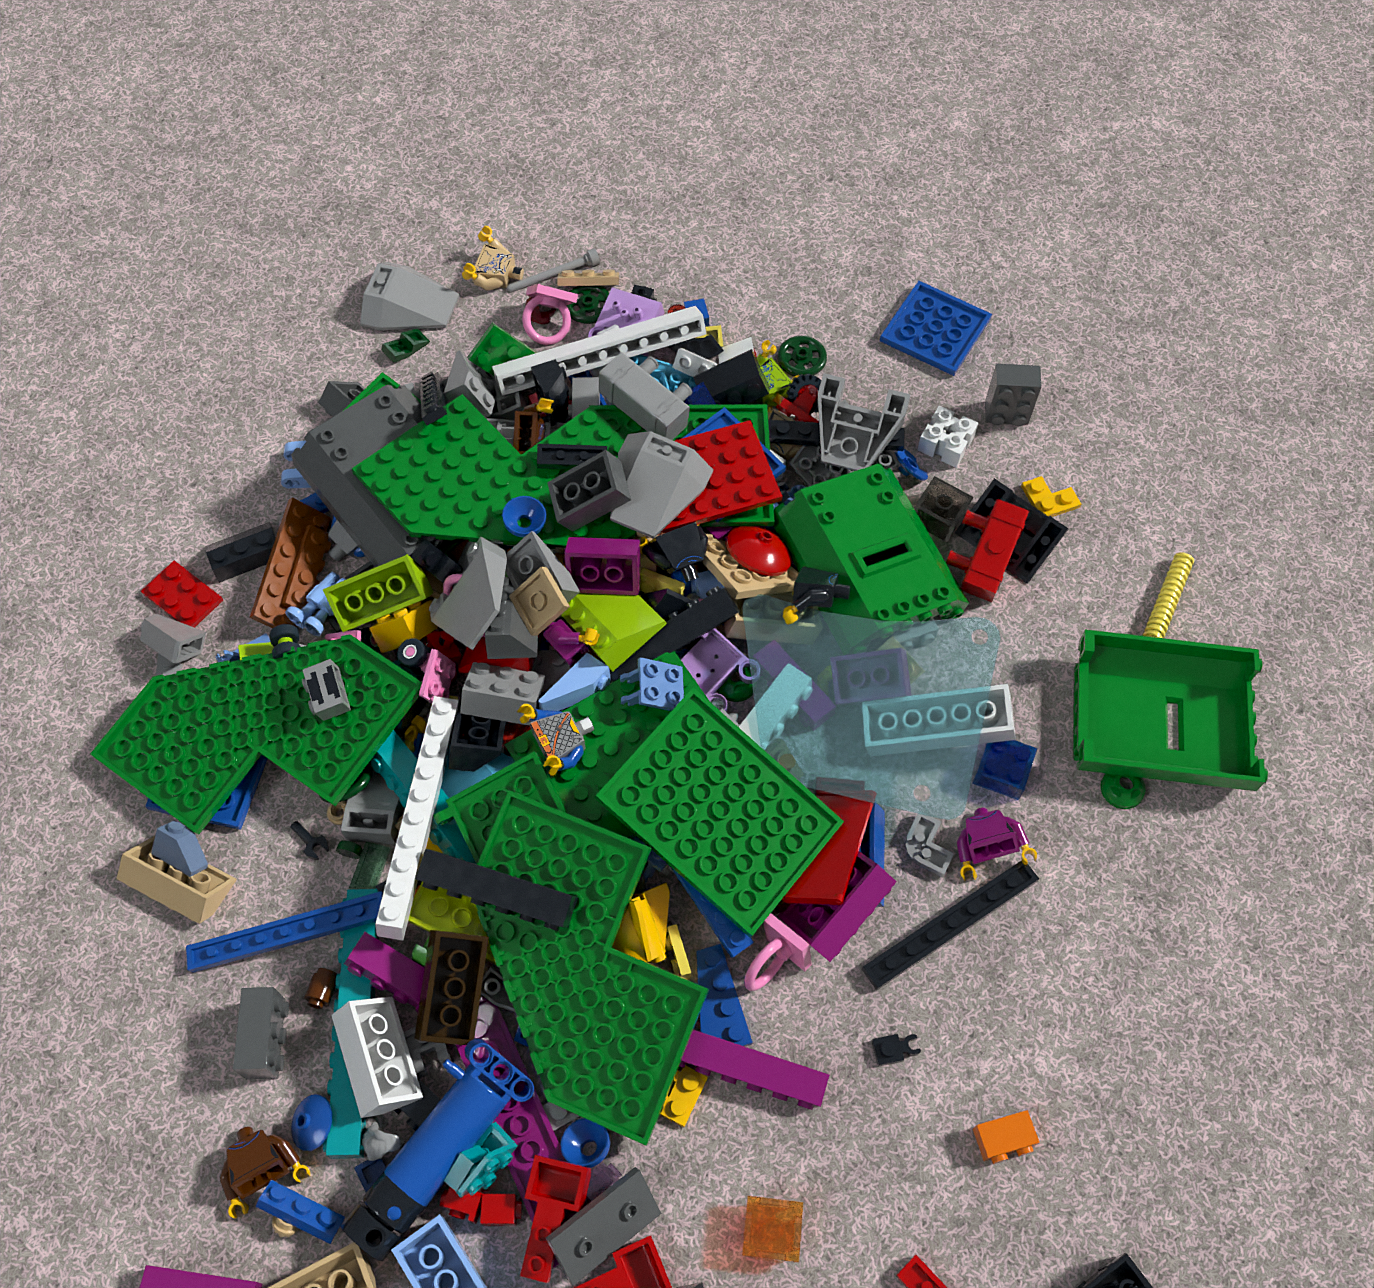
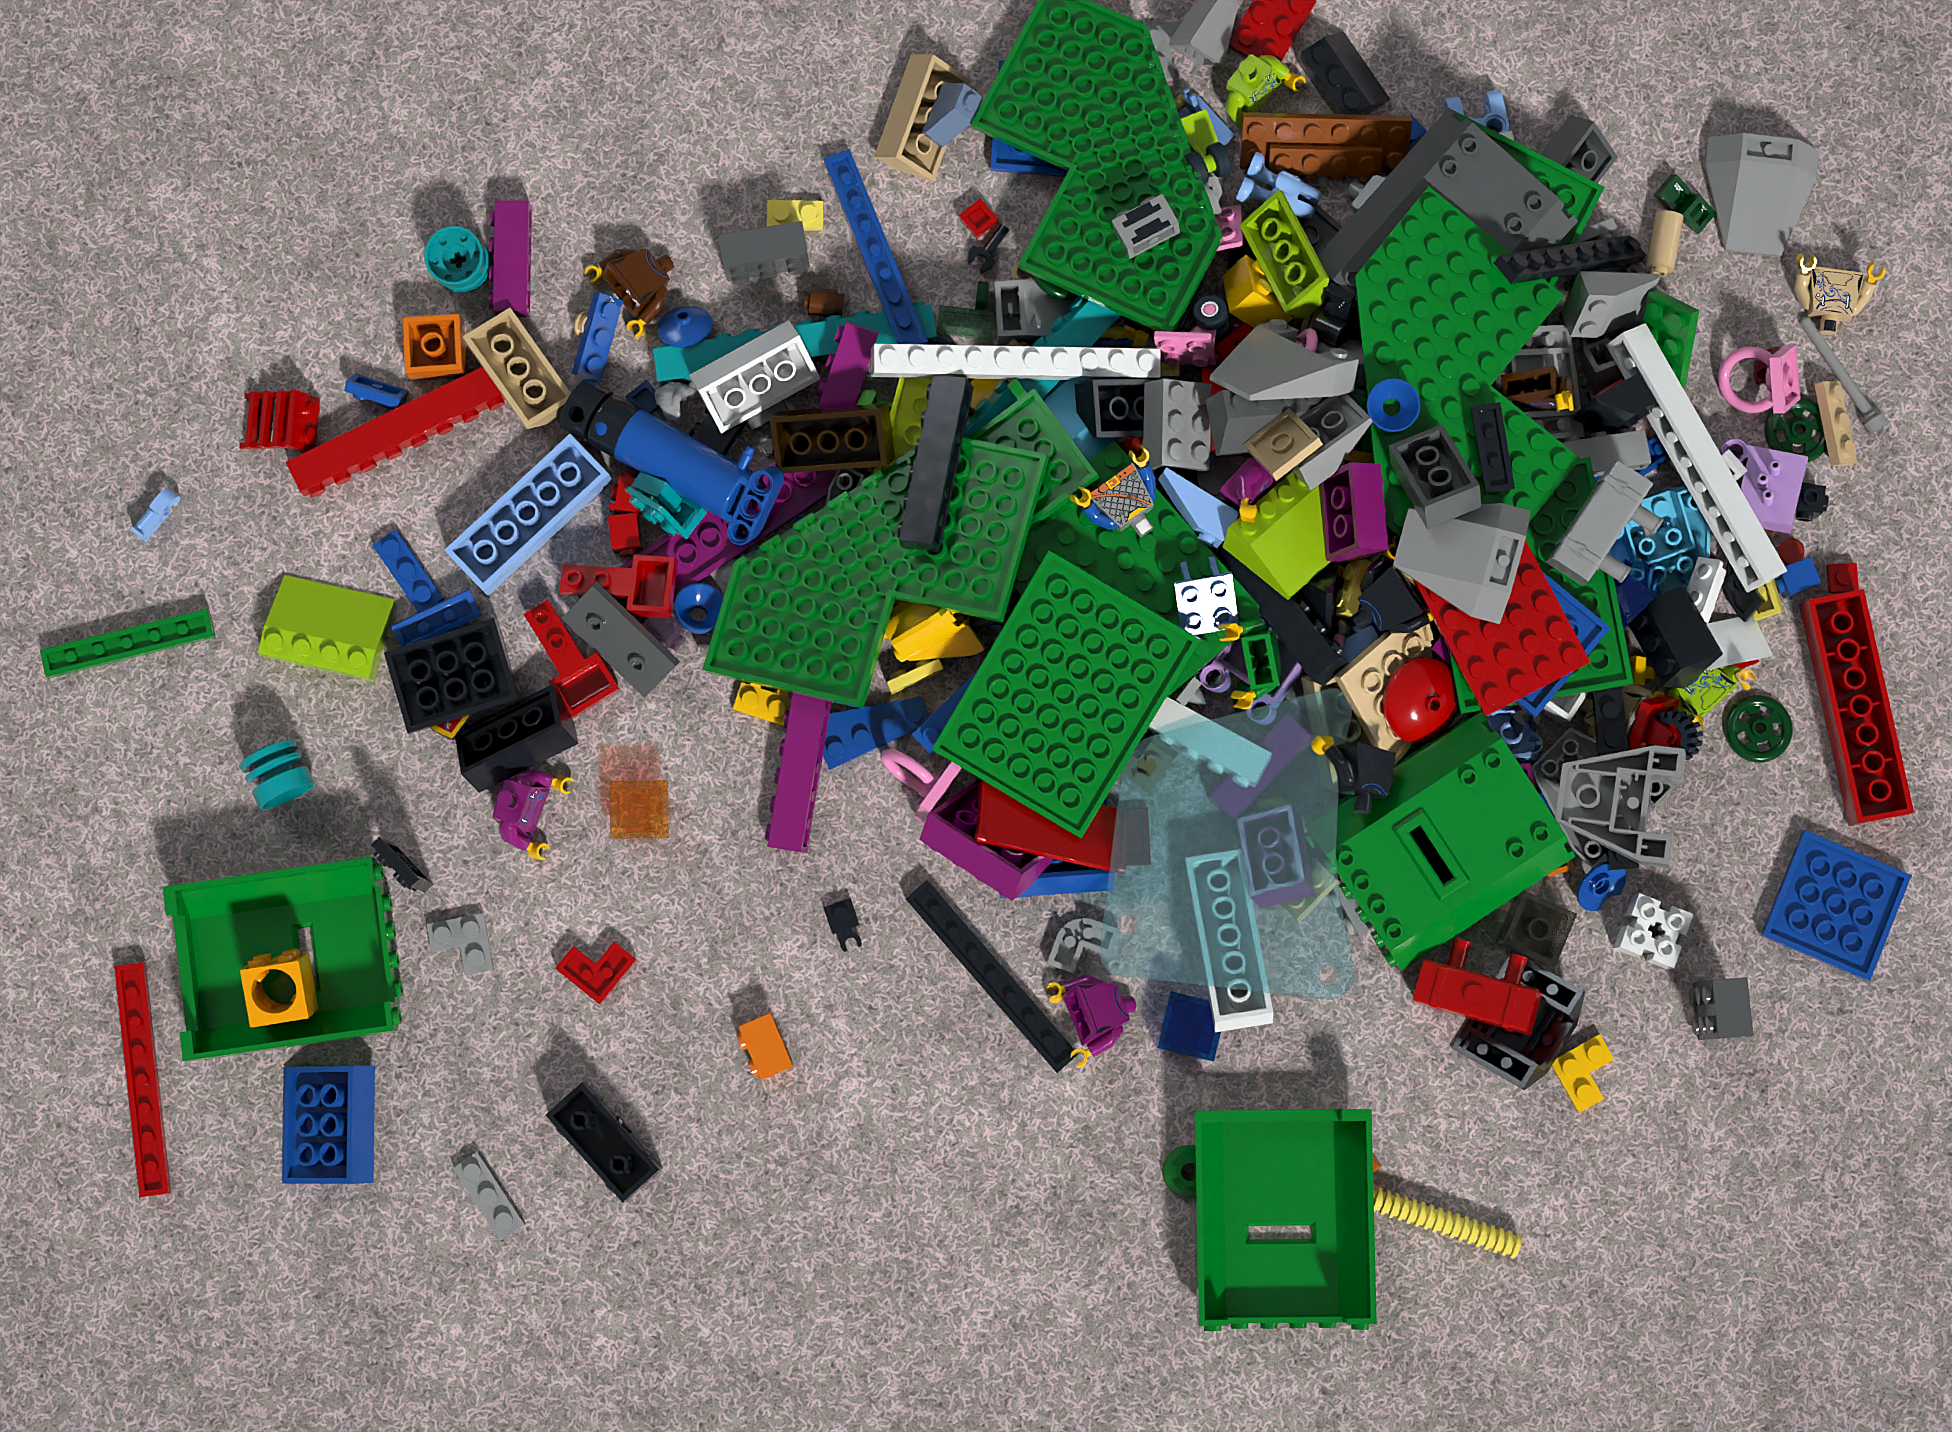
camera: 80 degrees right, 20 degrees up
(228, 1009) = (796, 210): none -> light yellow plate
(229, 610) = (1255, 83): none -> lime torso
(280, 843) = (978, 218): none -> red plate
(430, 359) = (1664, 242): none -> tan brick
(700, 291) = (1842, 577): none -> red plate
(711, 657) = (1260, 655): none -> green torso
(796, 292) = (1856, 707): none -> red brick

